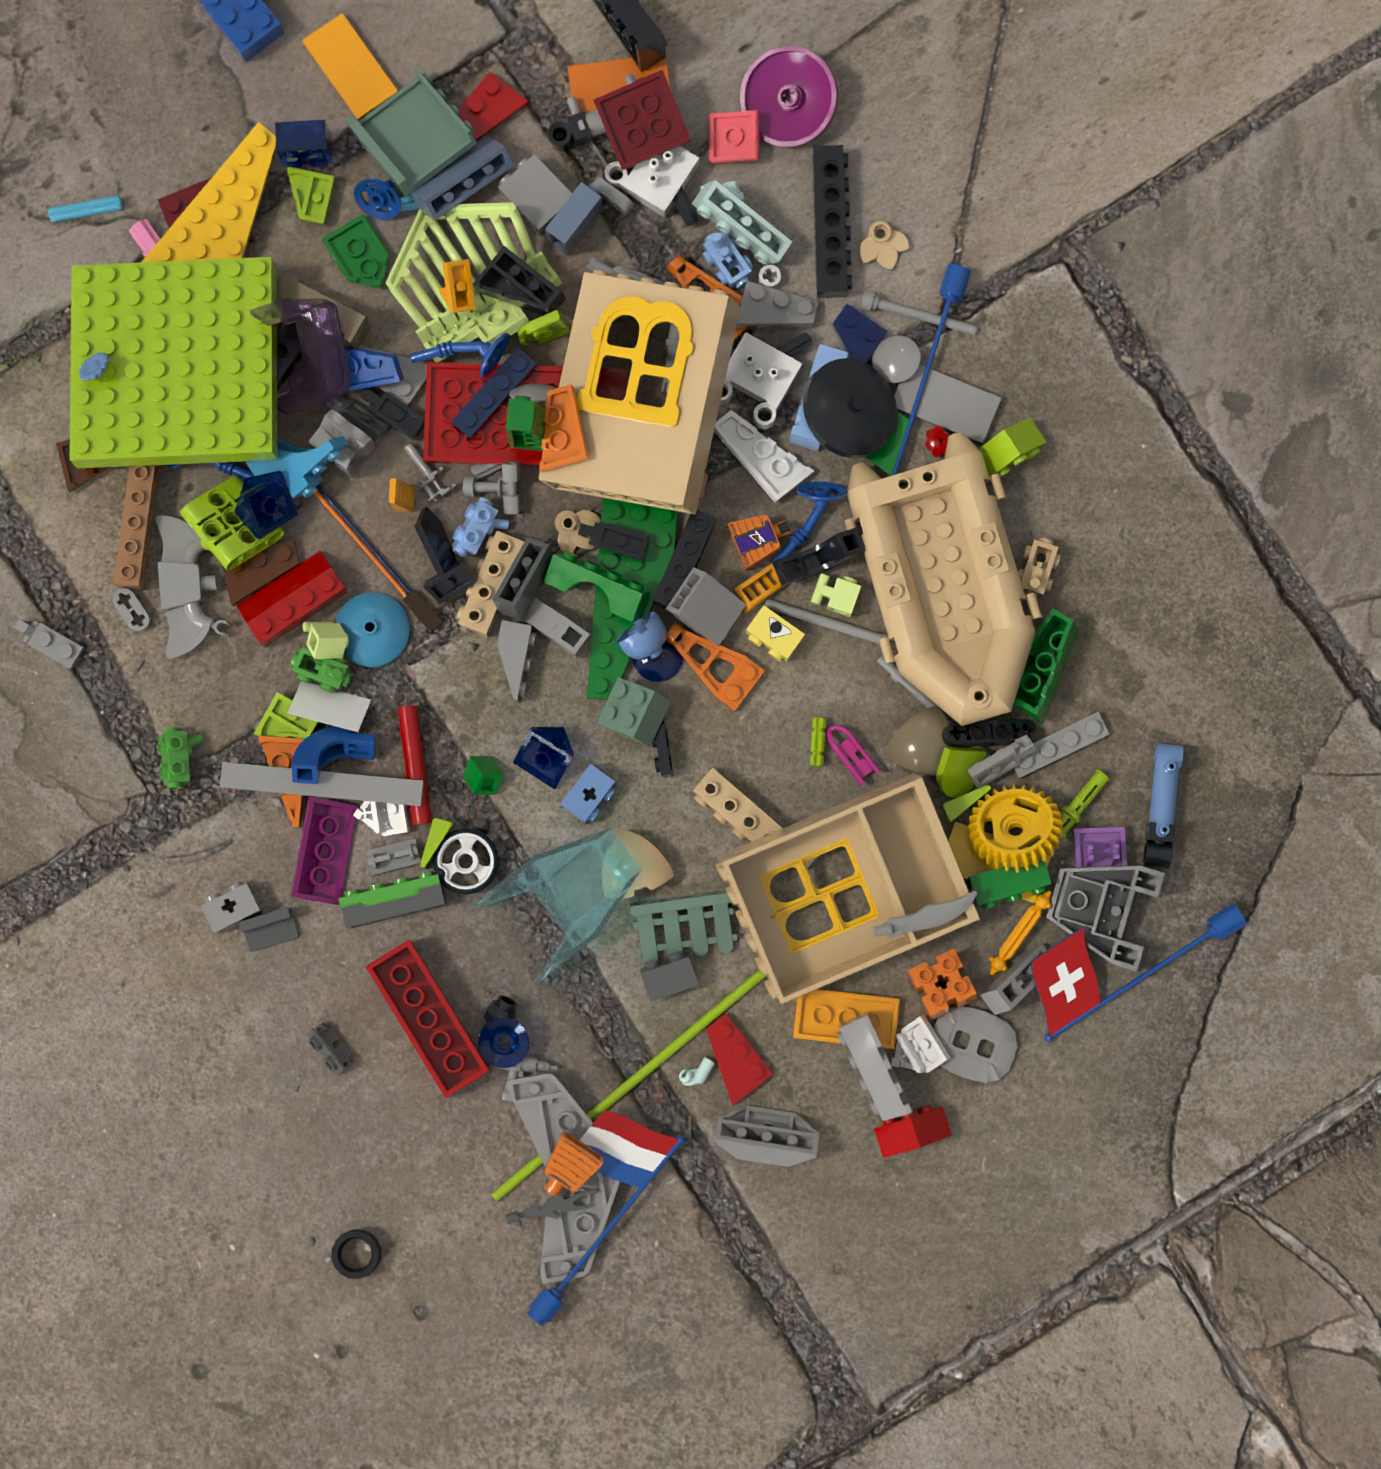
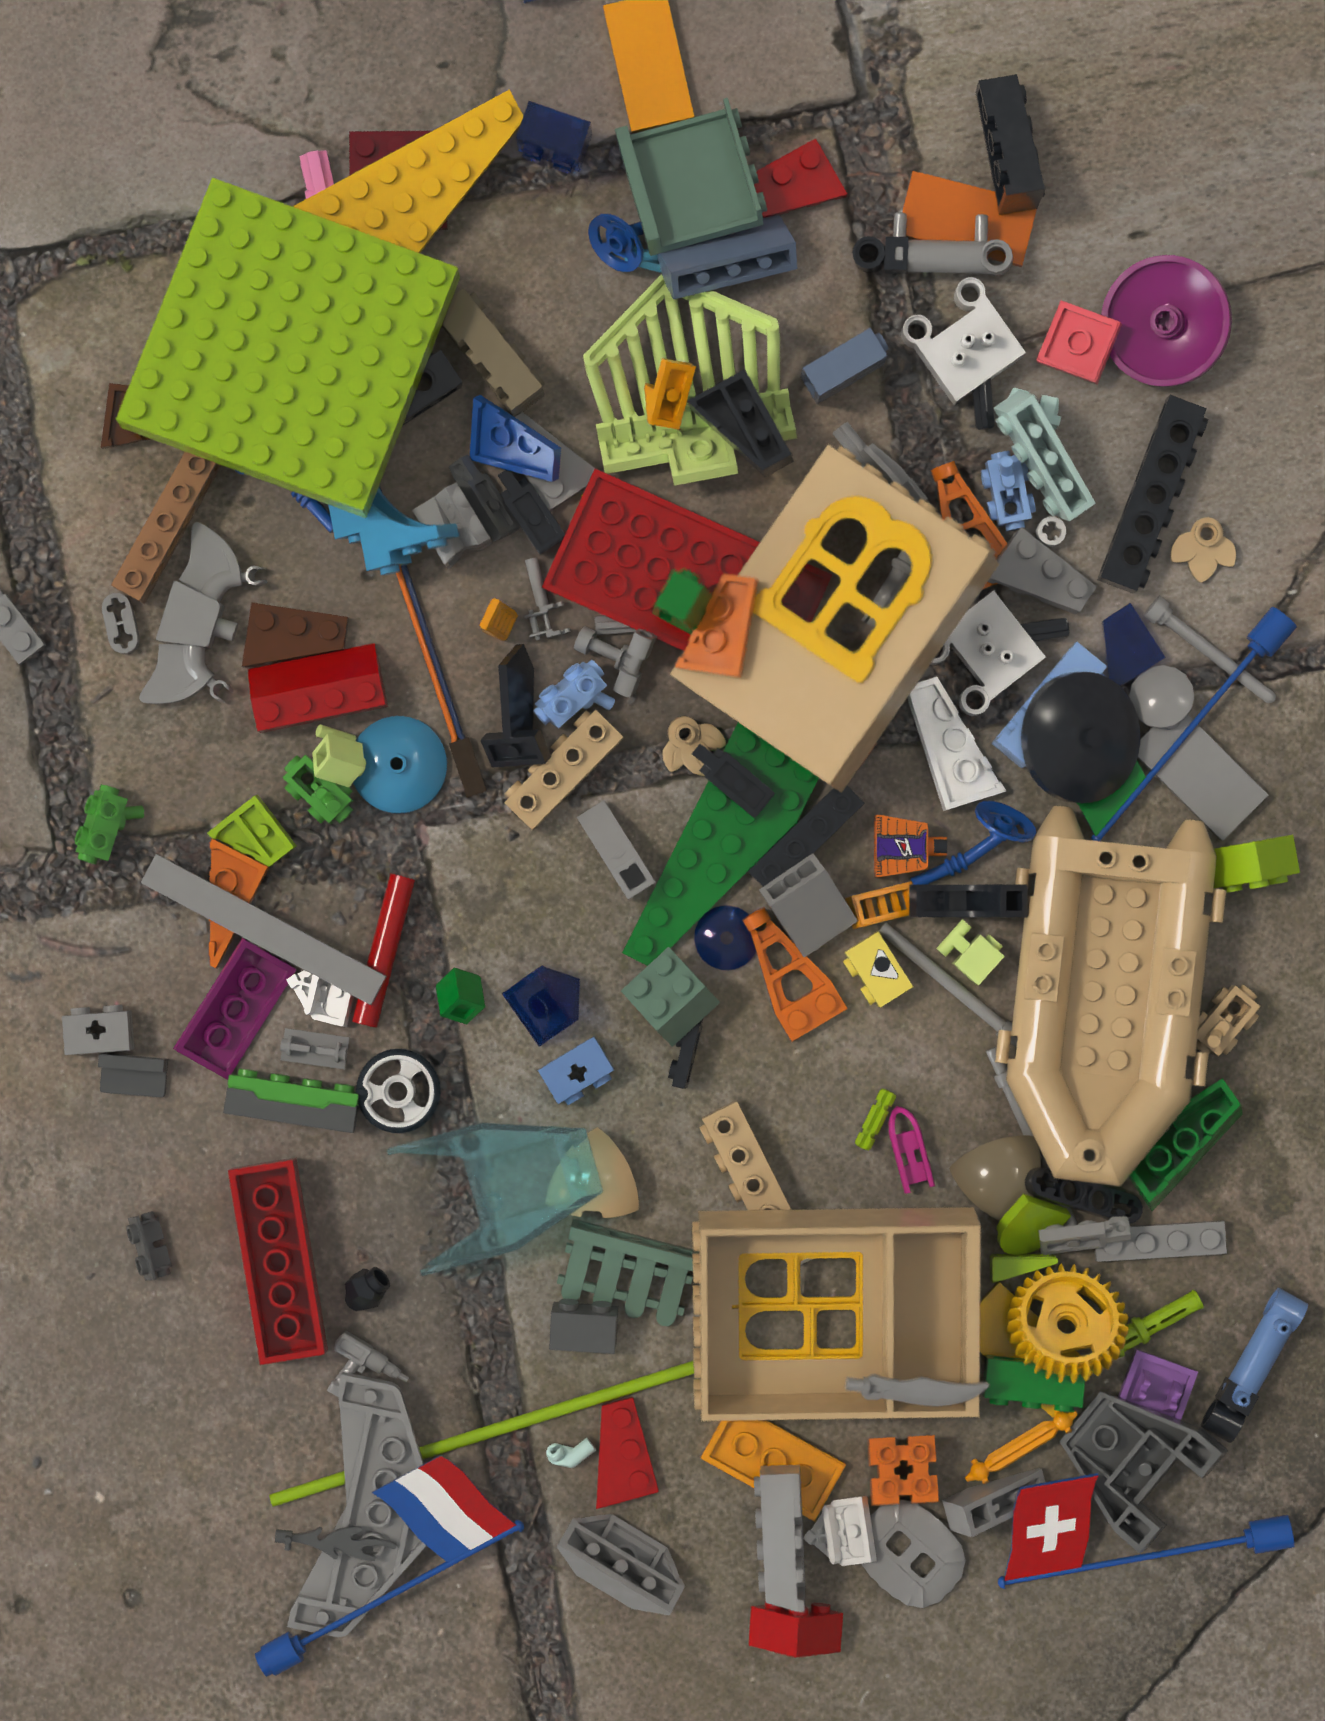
camera: 20 degrees right, 5 degrees up
(85, 208) = (257, 106): medium azure axle -> none
(94, 366) = (189, 317): medium blue piece -> none
(208, 518) = (309, 585): lime connector -> none
(265, 503) = (330, 564): clear blue slope -> none
(312, 194) = (538, 202): lime wing -> none
(322, 351) = (474, 405): clear purple windscreen -> none
(327, 746) = (287, 886): blue arch -> none
(329, 708) = (314, 844): white sticker -> none
(337, 1260) = (71, 1523): black tyre -> none
(358, 252) = (566, 297): green tile -> none
(437, 833) = (378, 1043): lime slope -> none
(491, 352) = (674, 489): blue dish -> none
(493, 393) = (659, 540): dark blue plate -> none
(503, 1055) = (350, 1340): clear blue dish -> none
(514, 647) = (557, 860): light grey slope -> none
(523, 579) = (604, 781): dark grey brick -> none
(534, 192) = (809, 313): light grey brick -> none
(535, 391) = (706, 562): light grey dish -> none
(544, 329) = (753, 487): lime tile -> none
(570, 1164) = (376, 1504): orange torso -> none
(613, 196) = (901, 353): light grey beam -> none
(624, 597) = (716, 854): green arch -> none
(642, 120) = (975, 280): dark red plate -> none
(644, 637) = (718, 913): medium blue cylinder -> none
(936, 441) = (1169, 816): red plant -> none

